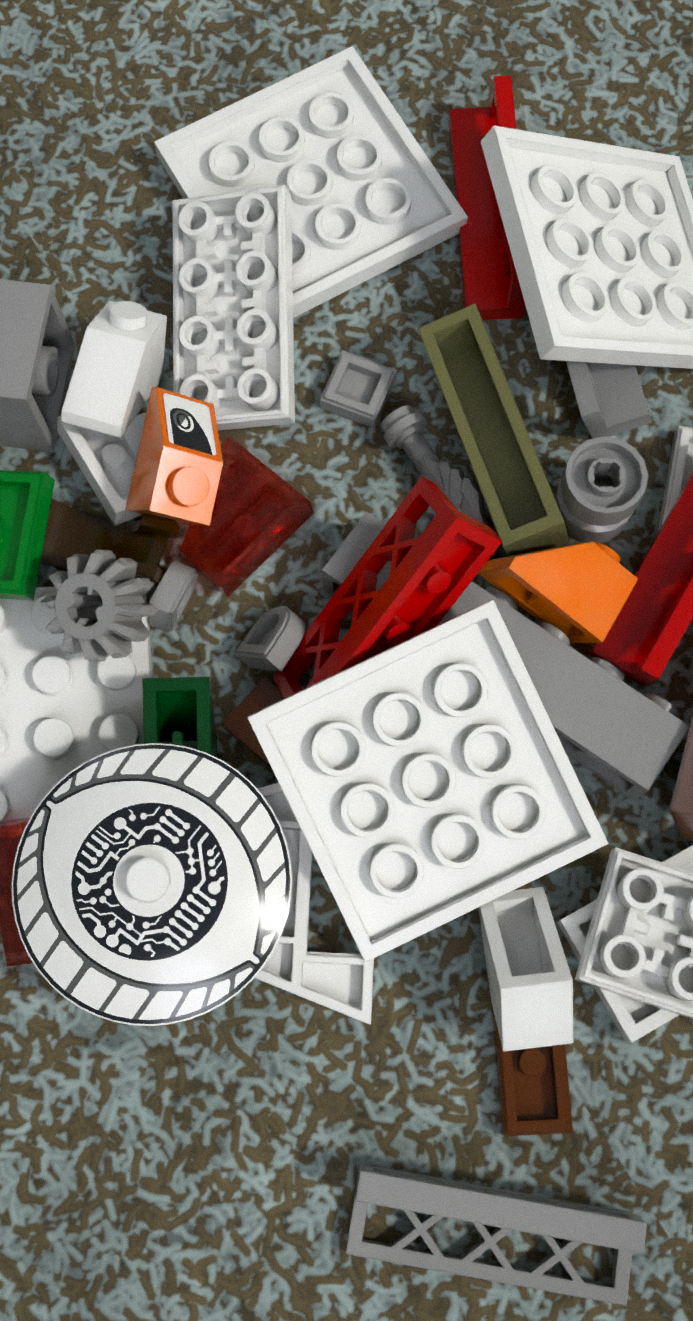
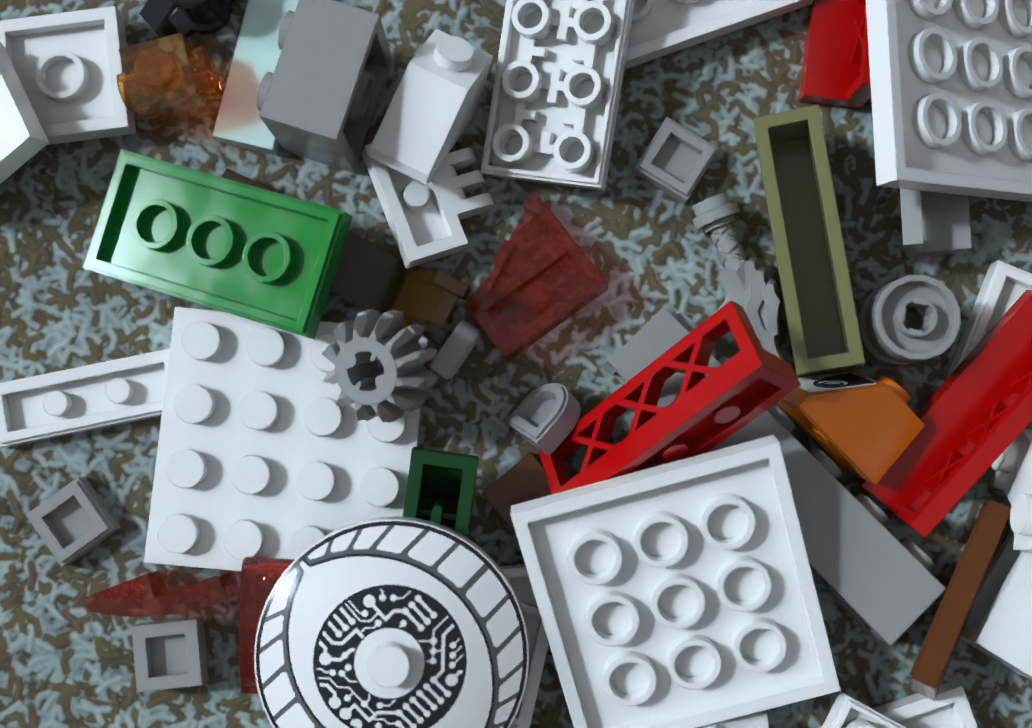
camera: 10 degrees right, 10 degrees up
(177, 460) = (480, 221): orange slope -> none

